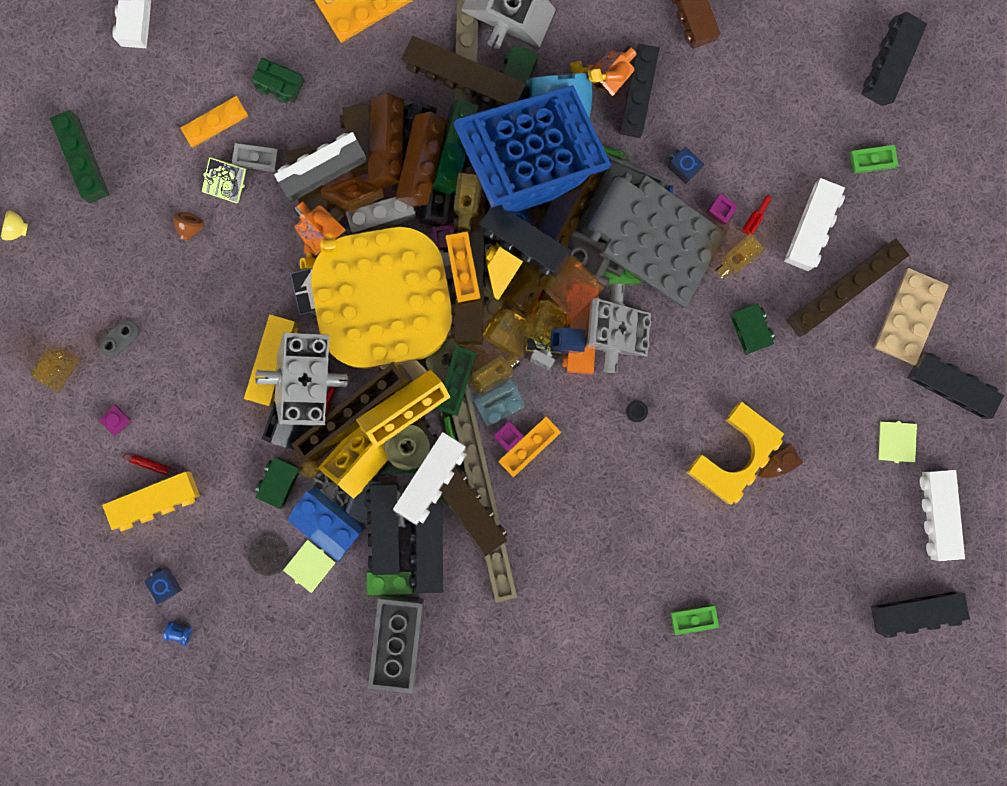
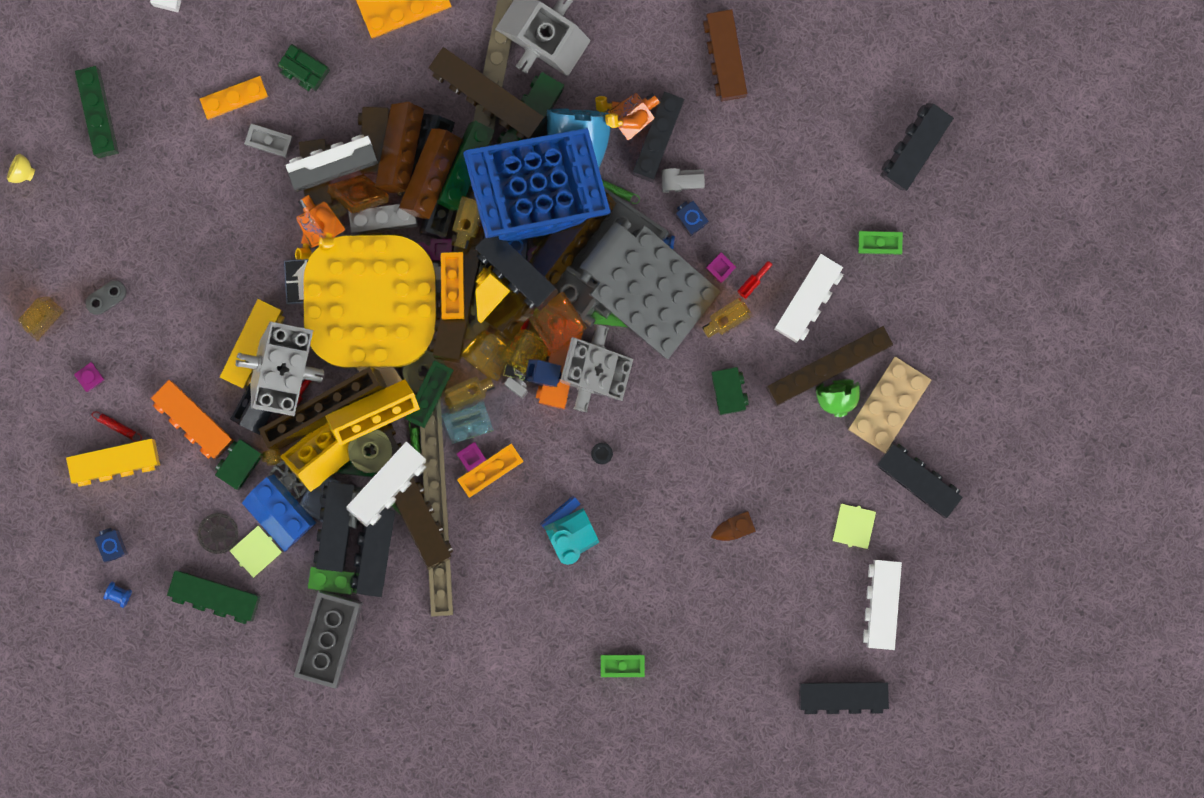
camera: 15 degrees right, 0 degrees up
(187, 225) = (191, 196): dark orange brick -> none
(223, 445) = (192, 420): none -> orange brick
(224, 180) = (234, 158): piece -> none
(273, 619) = (214, 596): none -> dark green brick
(608, 480) = (564, 510): none -> blue tile
(622, 499) = (571, 536): none -> teal slope
(666, 130) = (681, 180): none -> light grey piece
(762, 439) = (720, 500): yellow arch -> none
(863, 316) = (838, 397): none -> bright green cylinder

